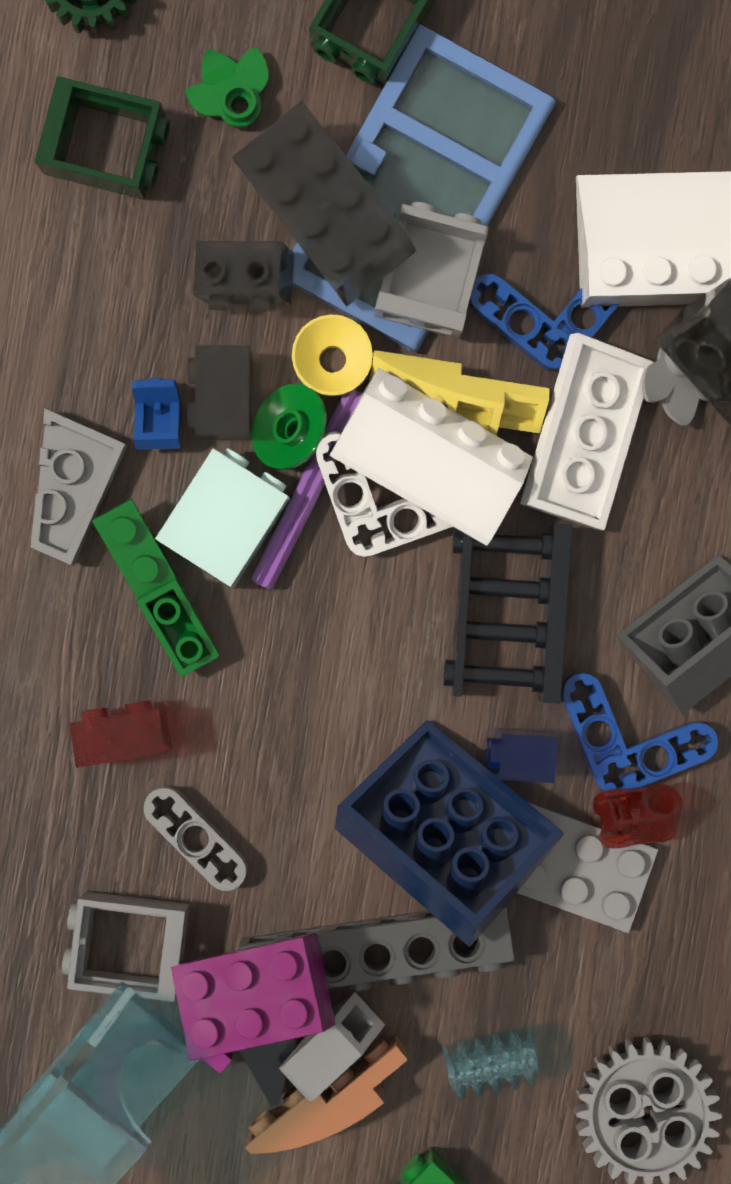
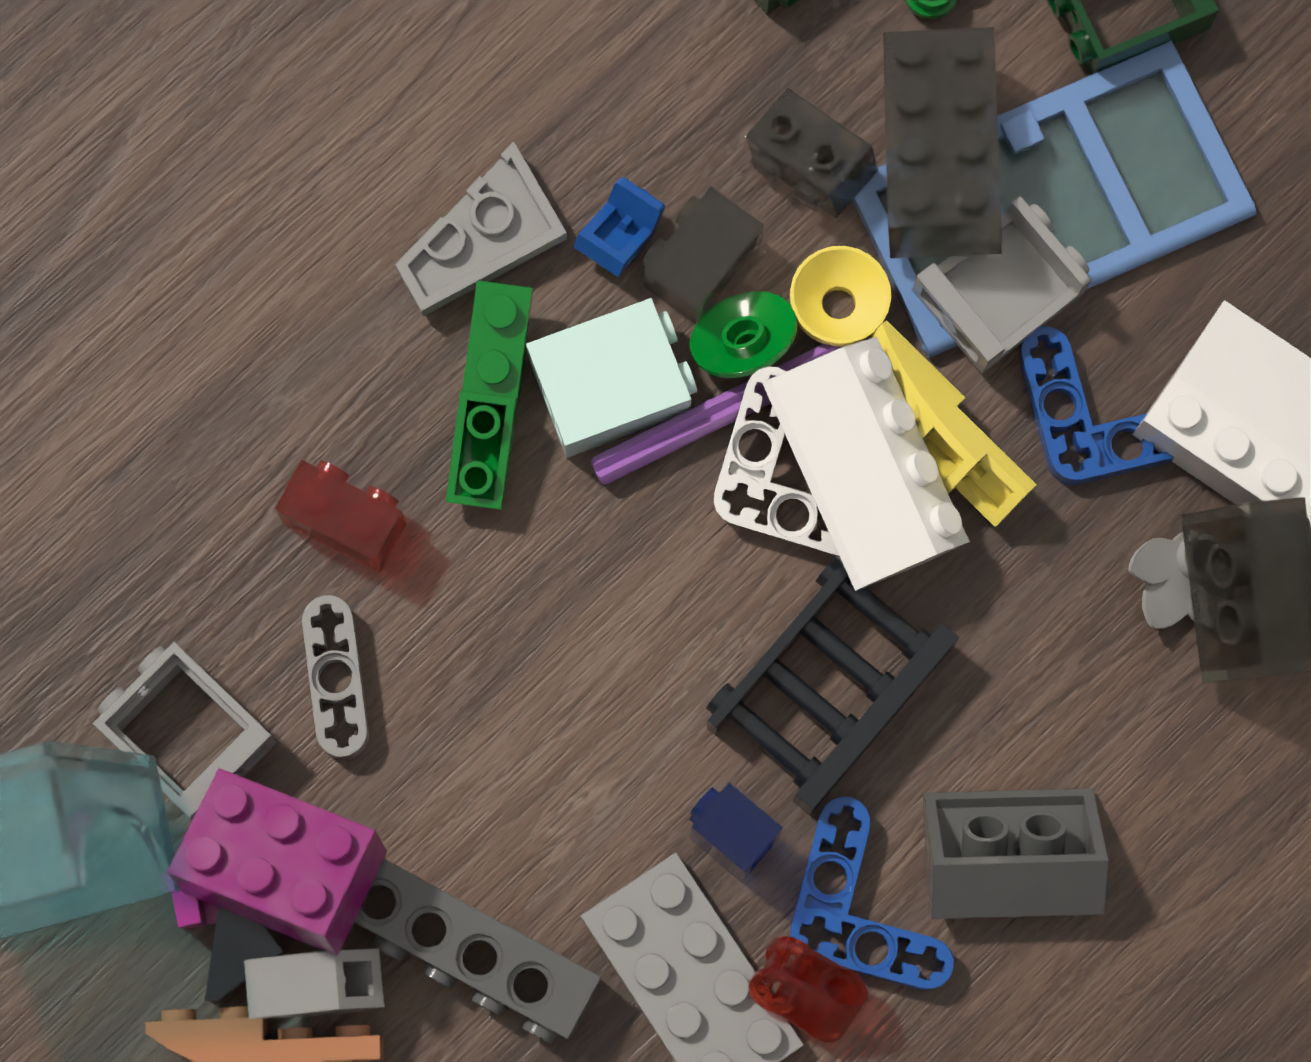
camera: 35 degrees right, 10 degrees down
(447, 831) = (597, 852): dark blue slope -> none
(586, 432) = (1042, 560): white plate -> none

